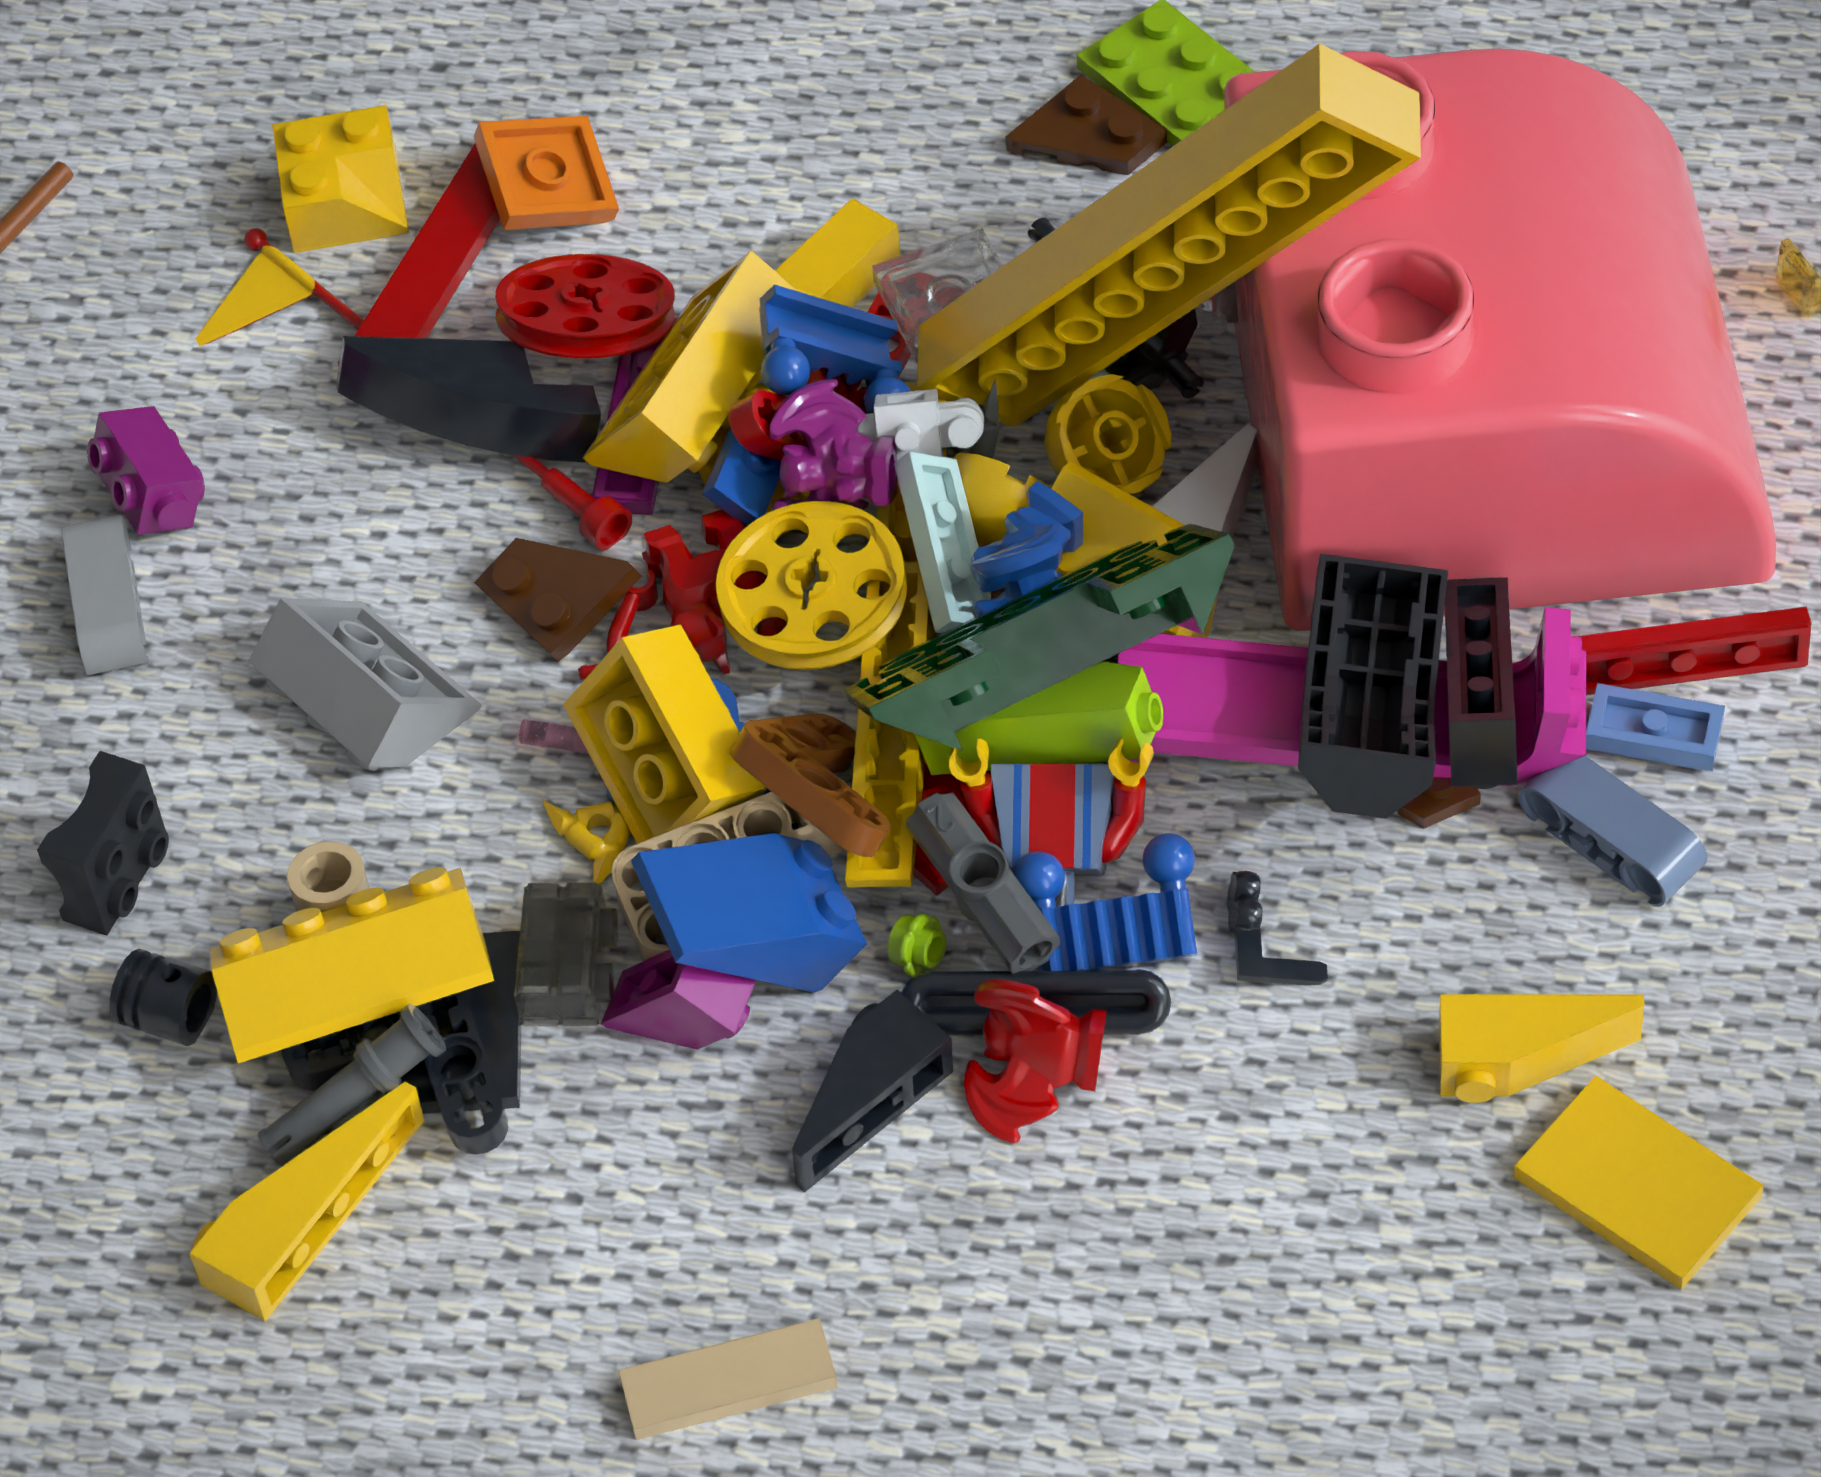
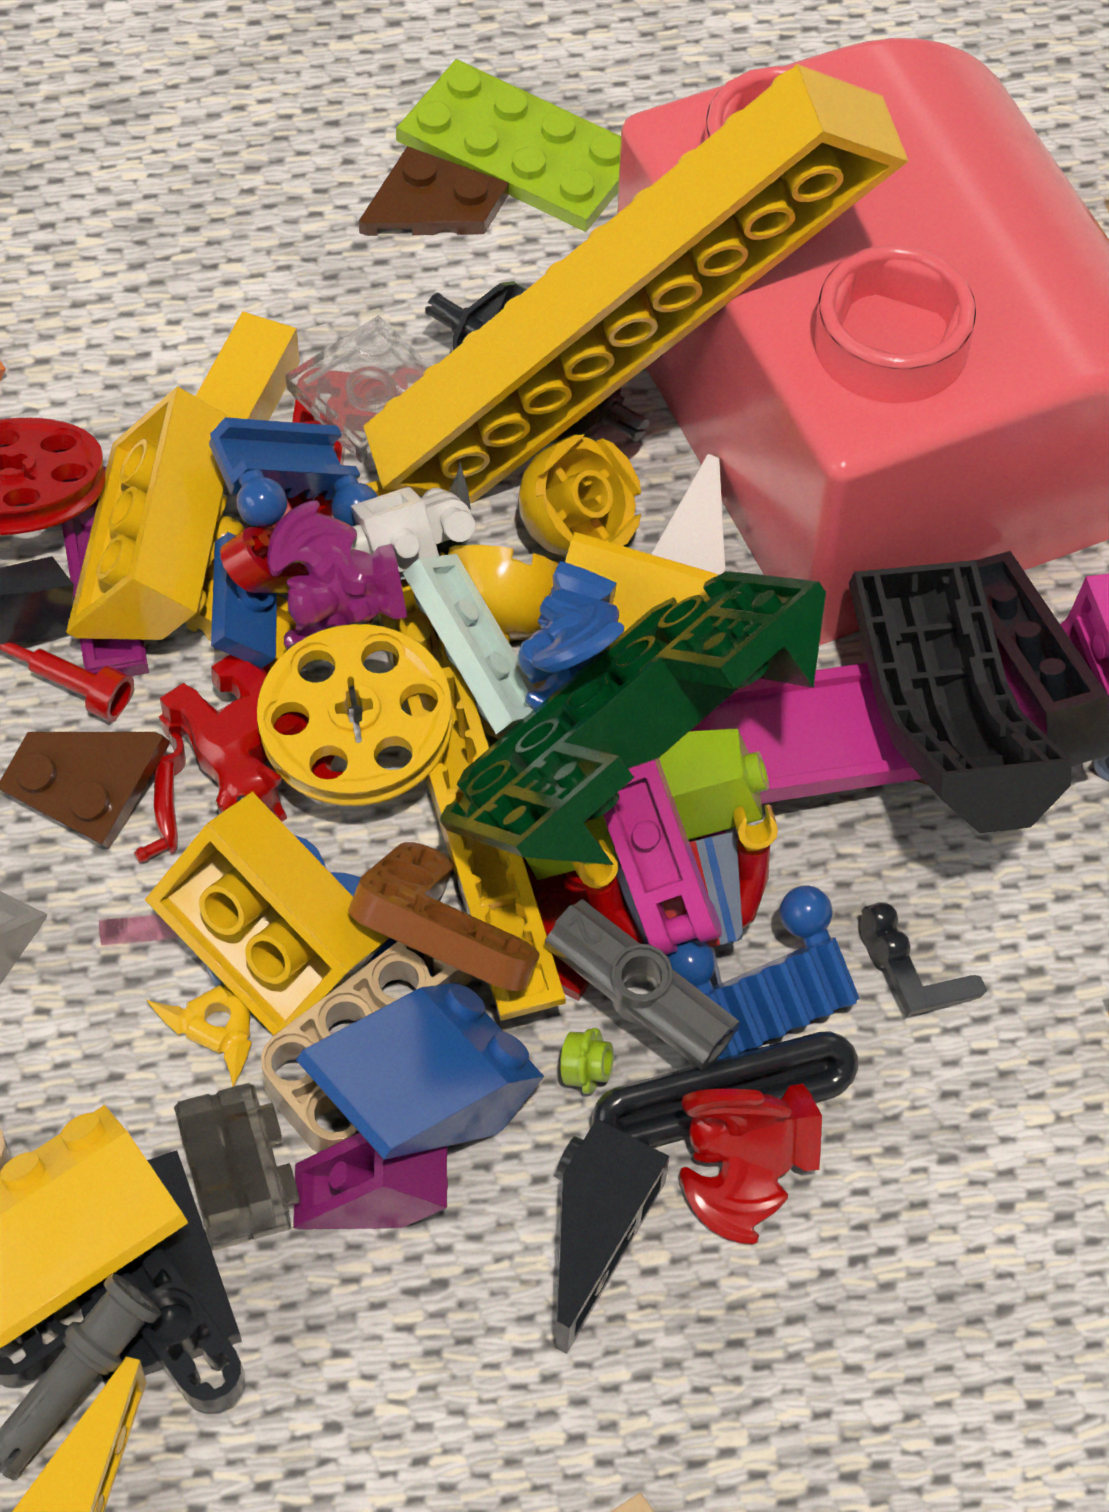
camera: 25 degrees left, 5 degrees up
(1026, 765) = (659, 860): none -> dark pink plate

